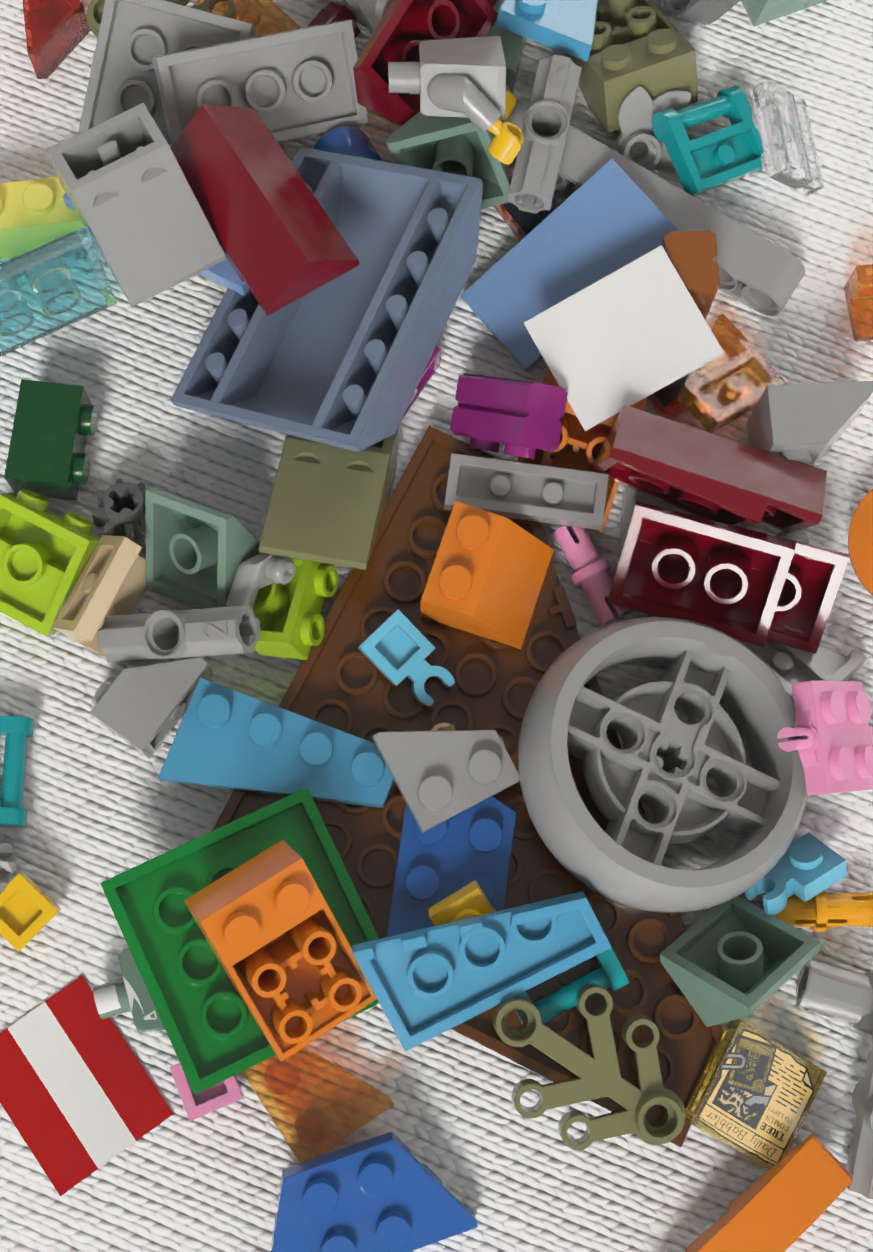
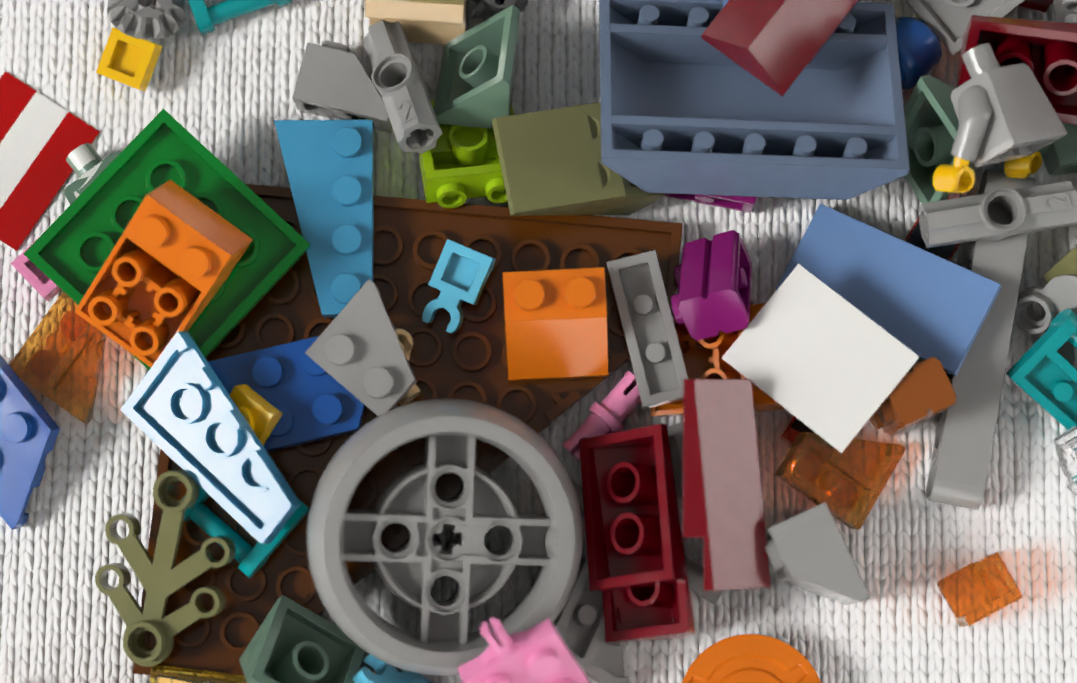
camera: 75 degrees right, 5 degrees up
(256, 574) = (473, 125): light grey arm -> none

